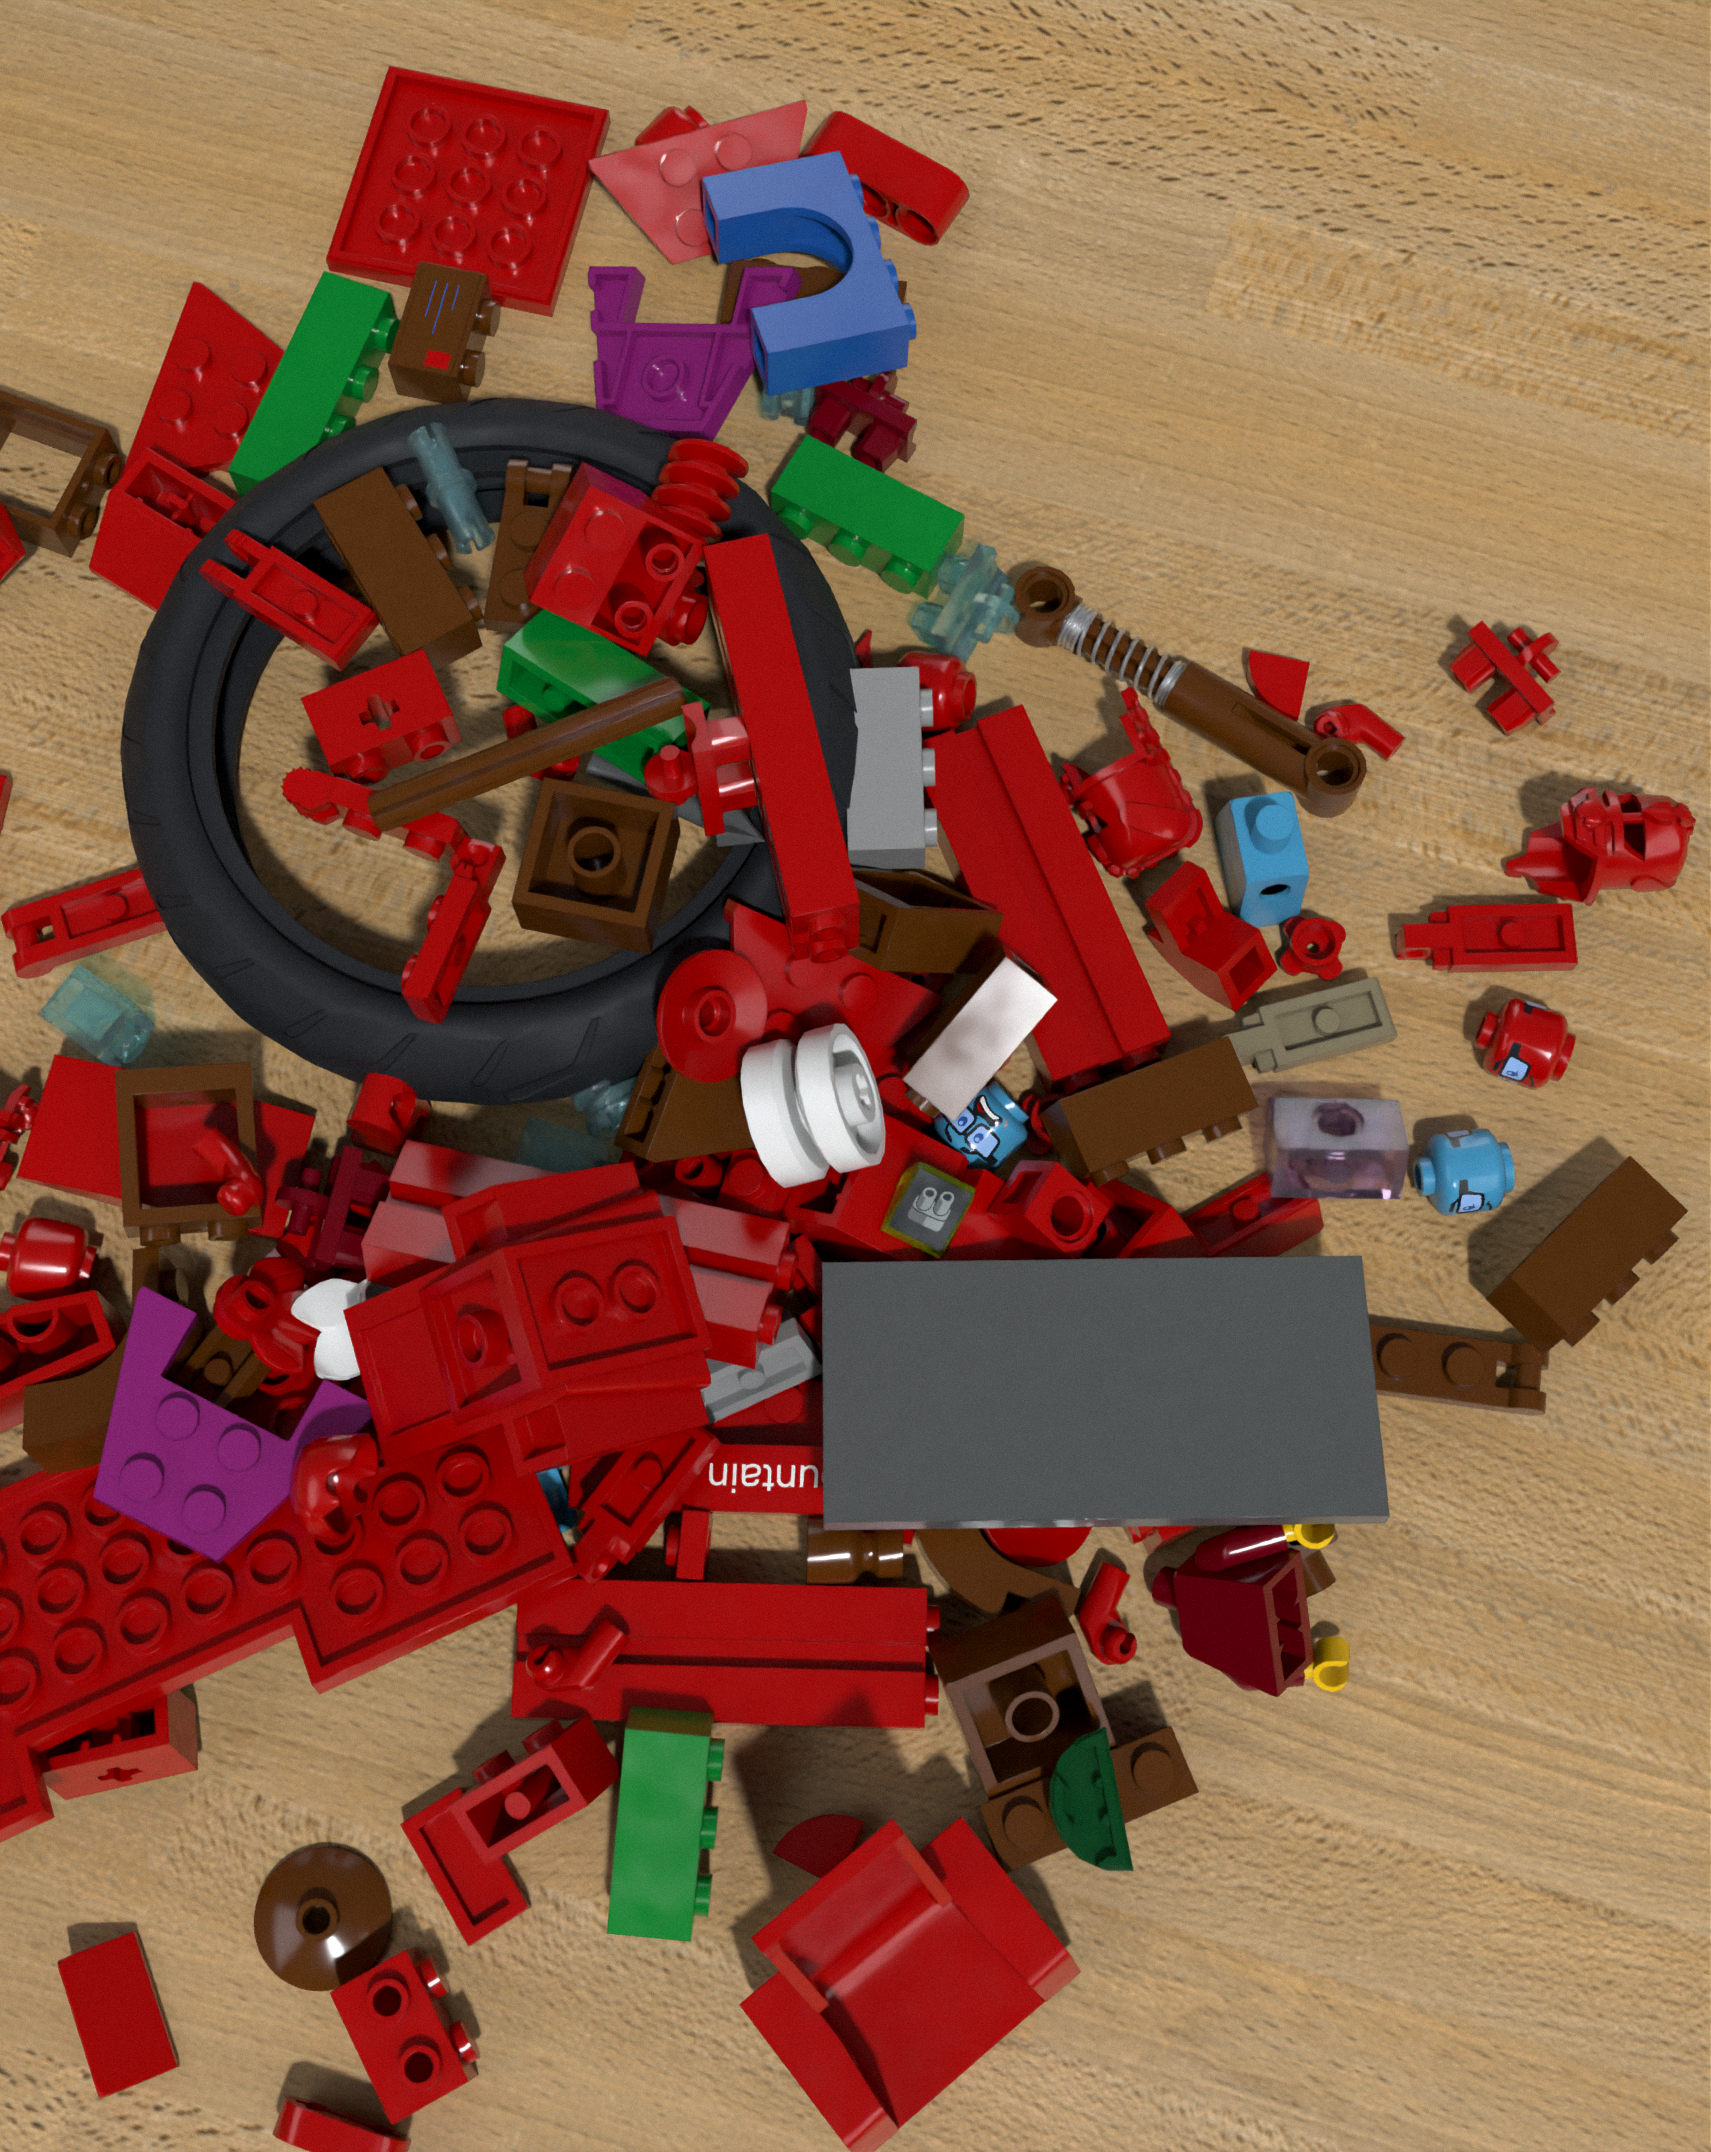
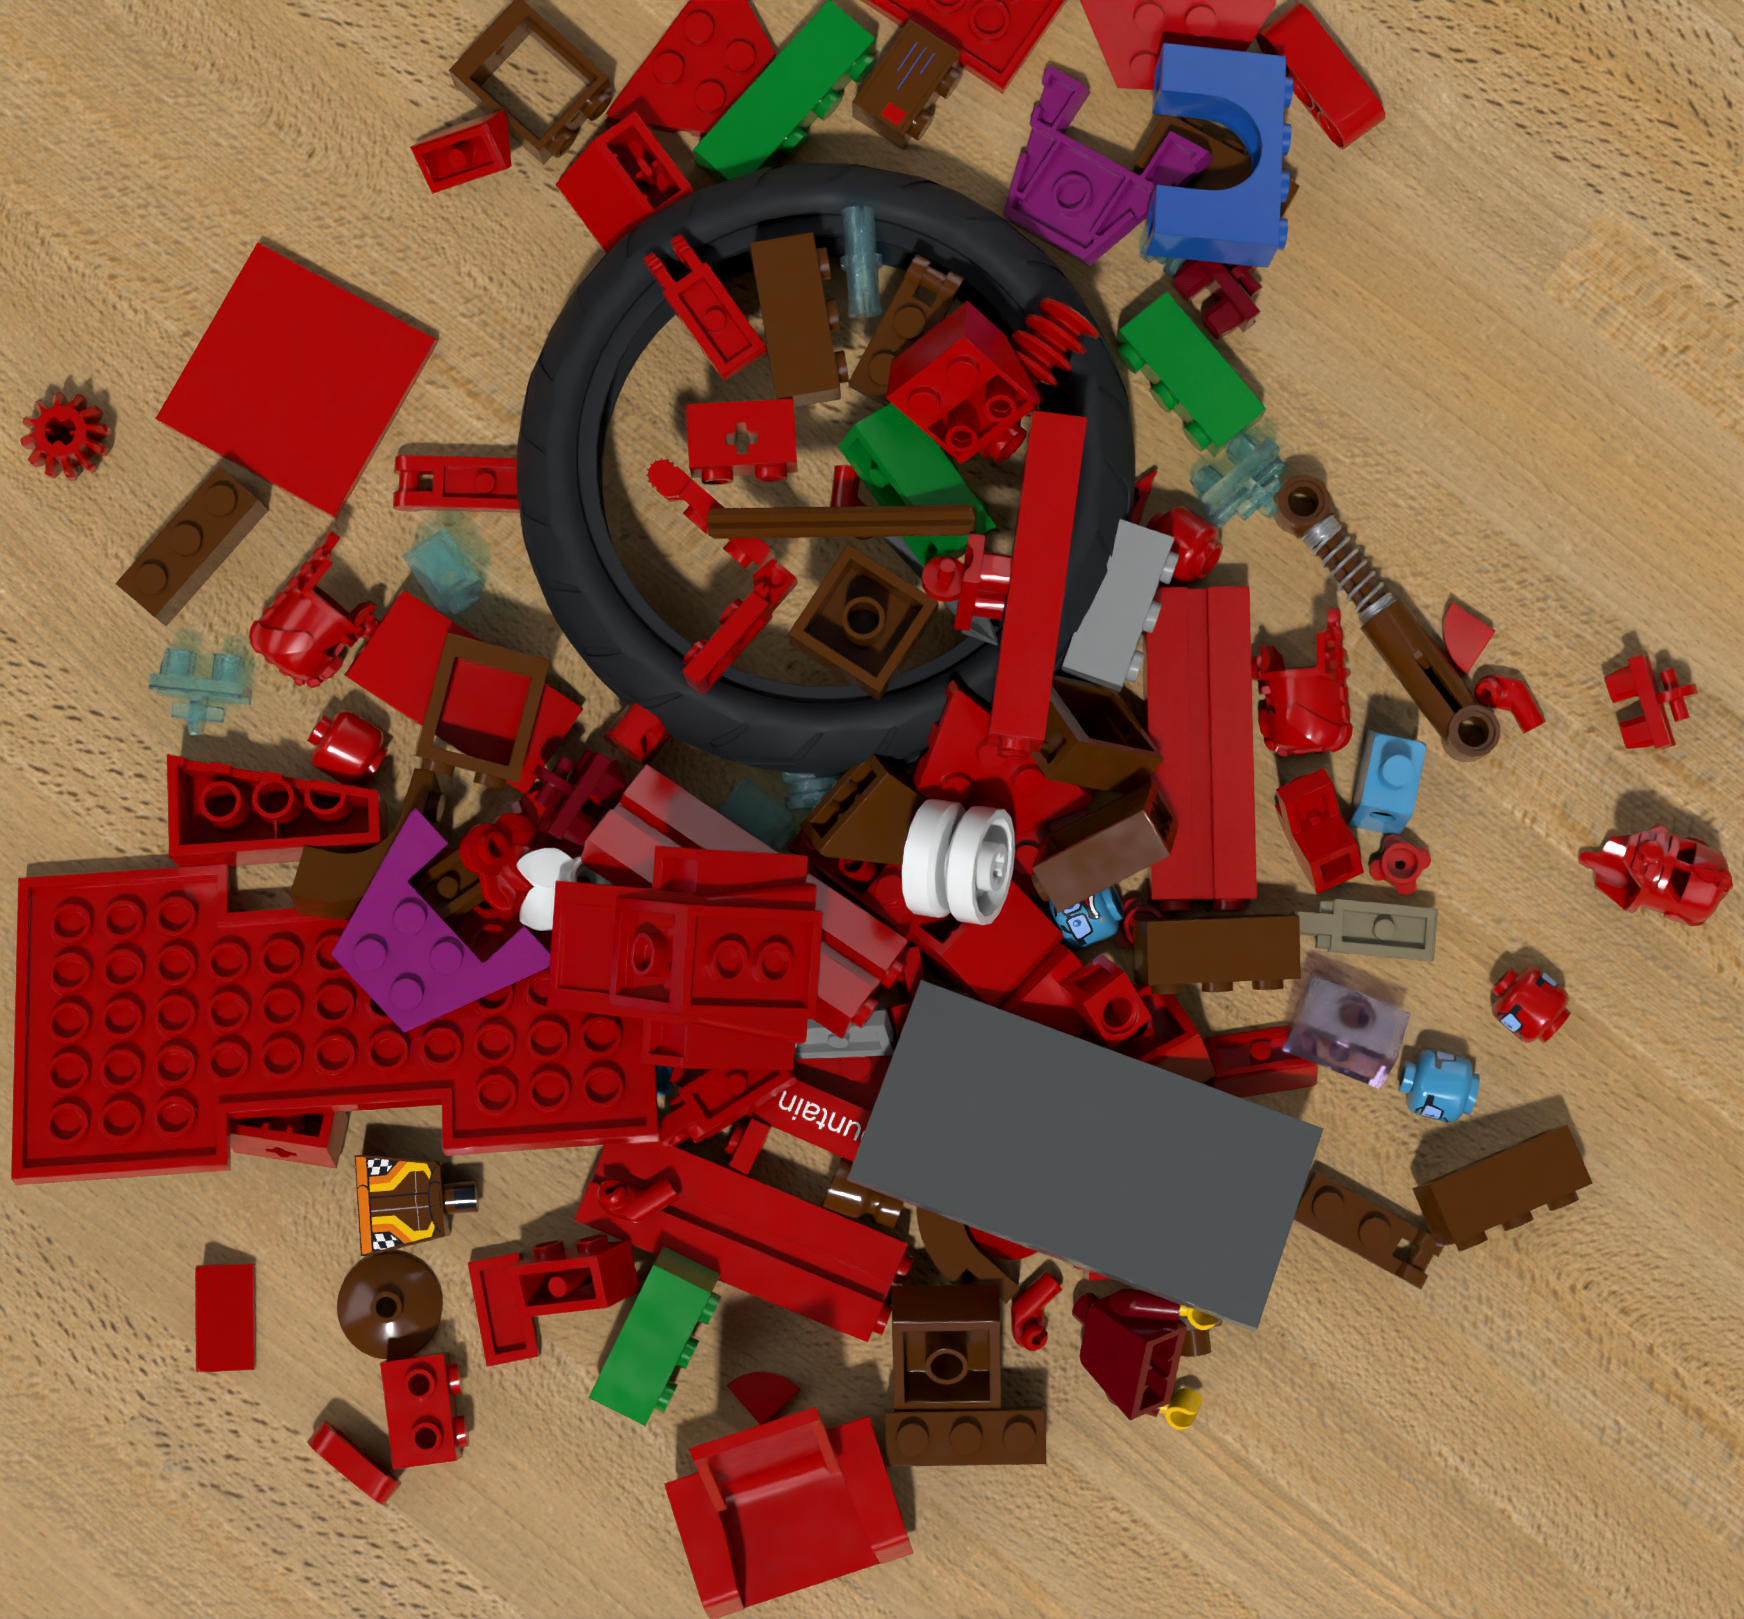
camera: 20 degrees right, 10 degrees up
(242, 1182) = (512, 742): red arm -> none
(298, 1778) = (407, 1202): none -> torso
(325, 1482) = (499, 1005): red hair -> none
(730, 1020) = (907, 767): red dish -> none
(927, 1208) = (1015, 967): slope -> none
(1088, 1805) = (962, 1442): dark green tile -> none
(1493, 938) = (1543, 912): red hinge -> none

